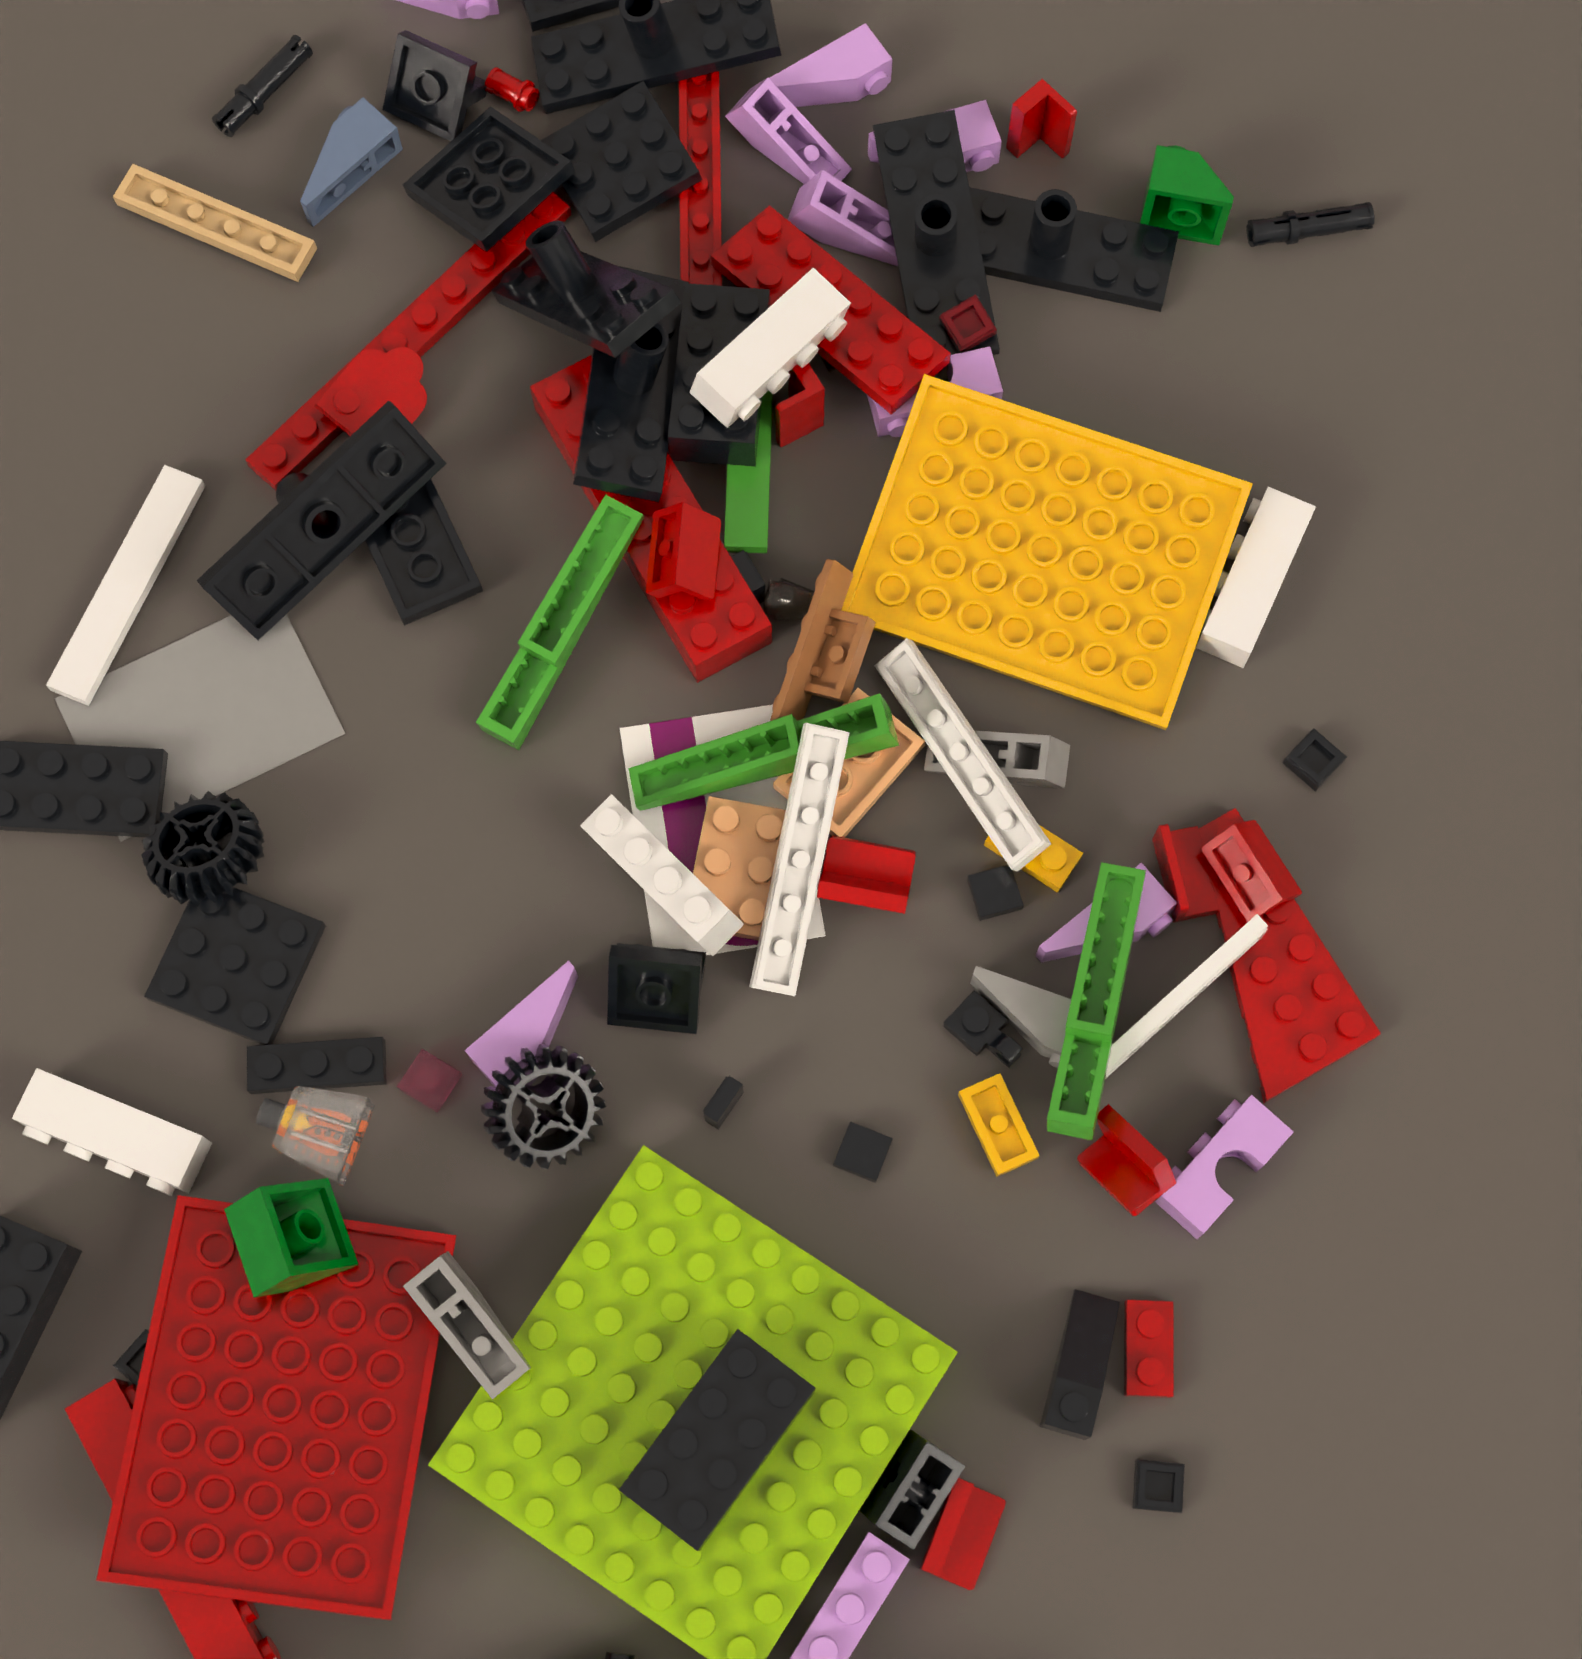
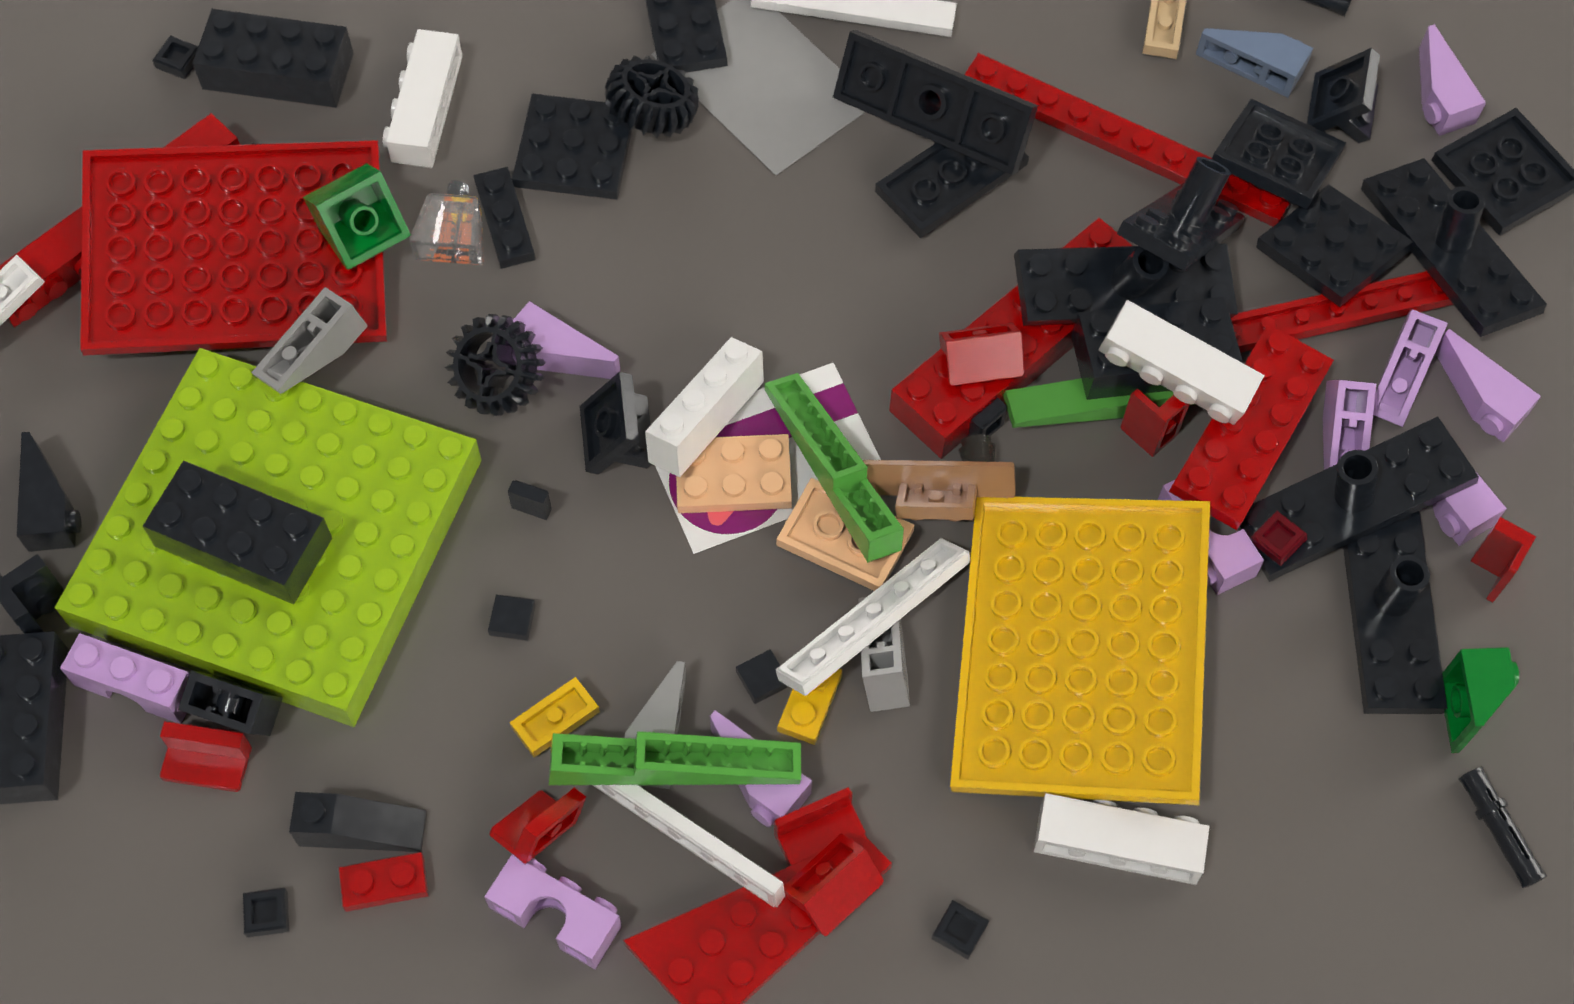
camera: 75 degrees right, 10 degrees down
(370, 383) = (1062, 123): red plate -> none
(429, 1080) = (507, 293): clear pink plate -> none
(519, 93) = (1368, 161): red pin -> none
(559, 623) = (900, 285): bright green slope -> none
(799, 859) = (746, 504): white tile -> none
(867, 874) = (747, 567): red panel -> none
(980, 1026) = (635, 689): black plate -> none

